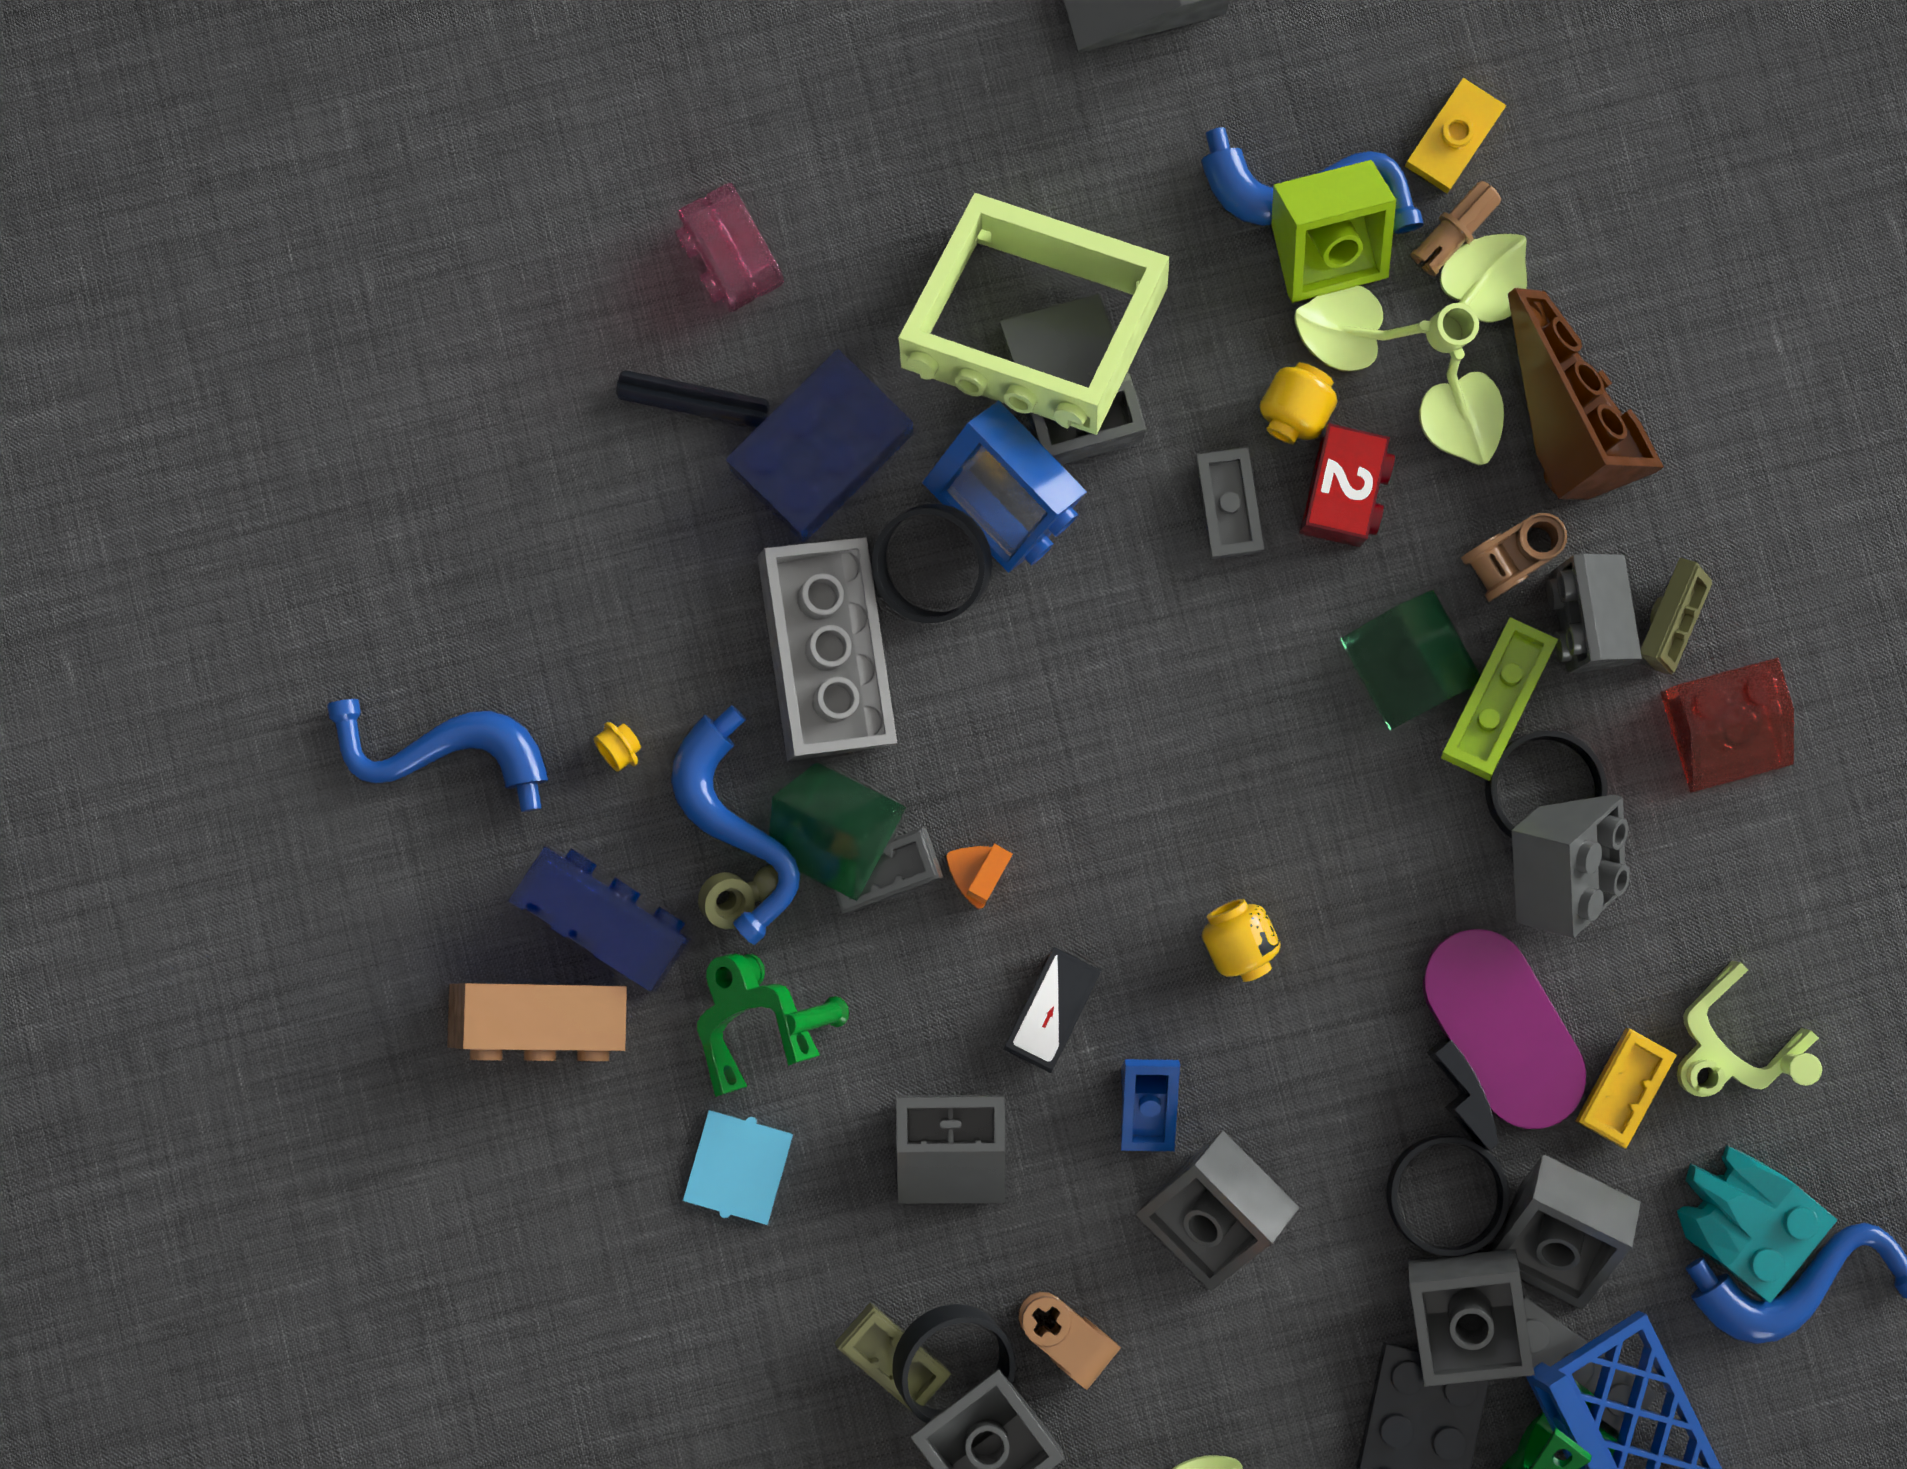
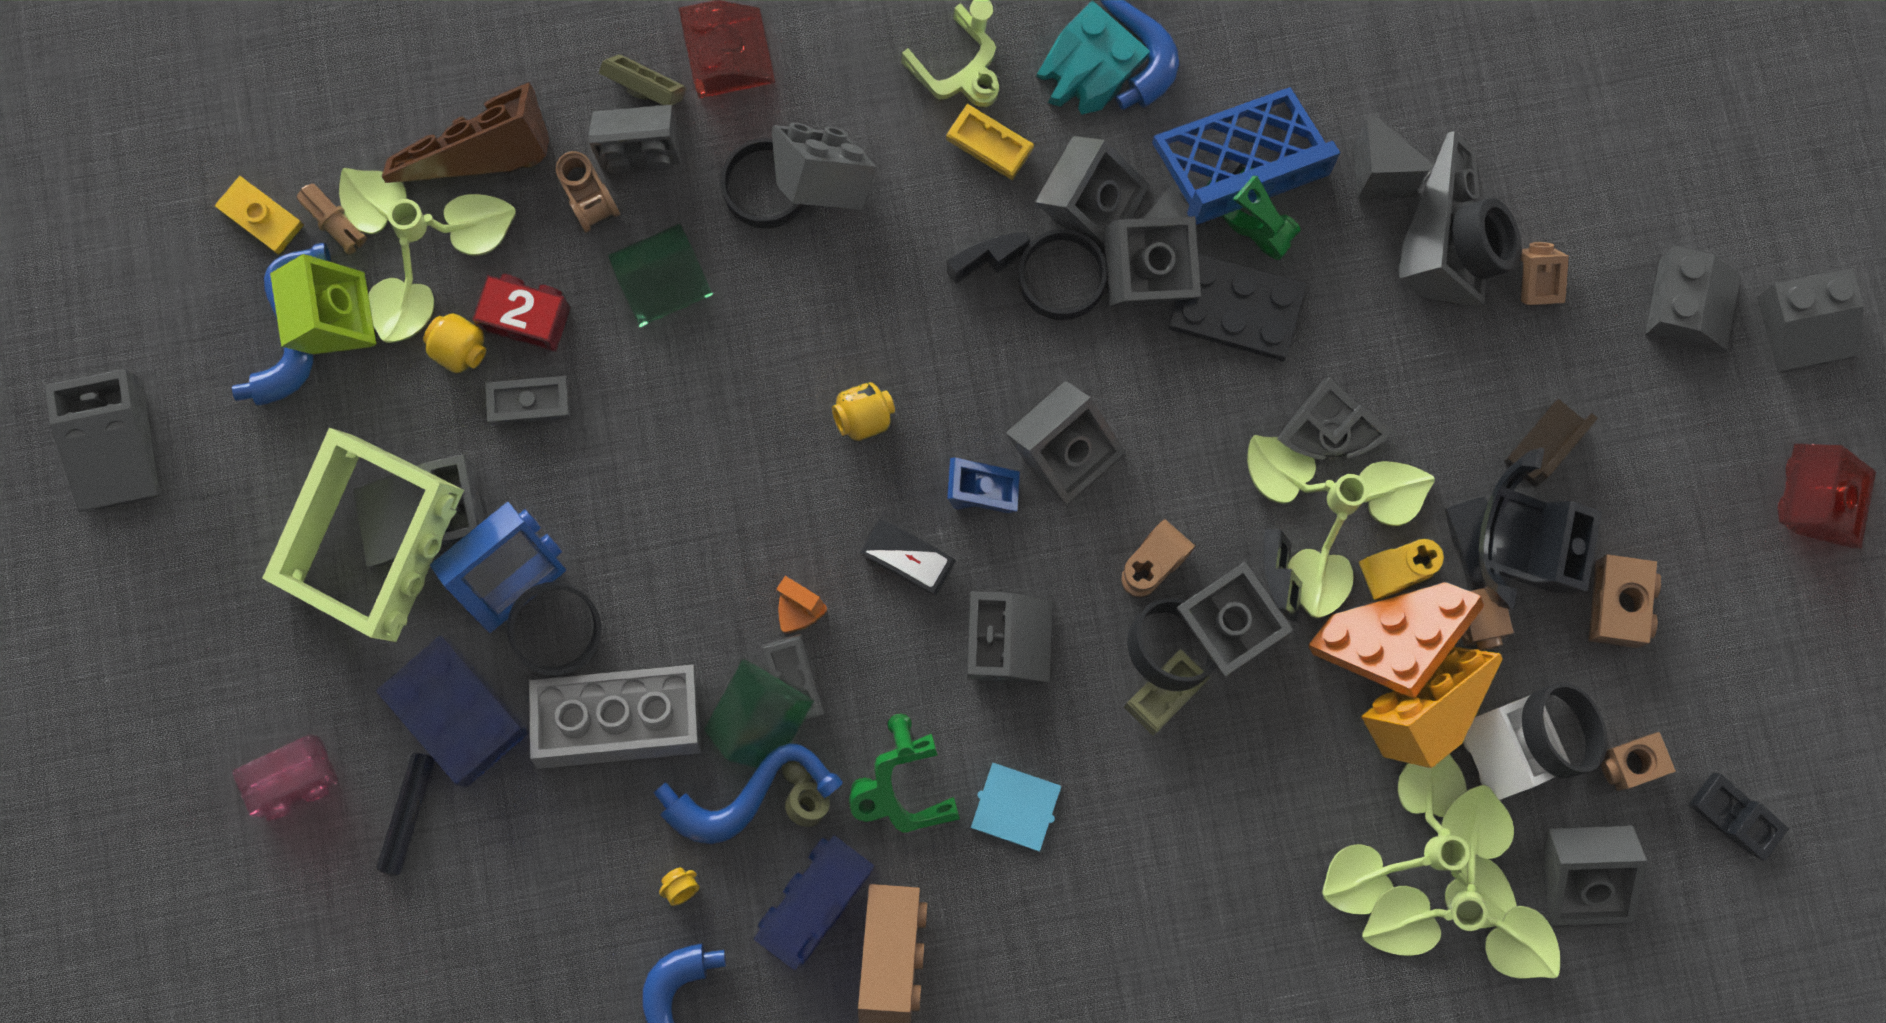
camera: 85 degrees left, 5 degrees down
(1499, 698) = (694, 210): lime plate -> none
(1504, 1028) = (932, 226): magenta tile -> none

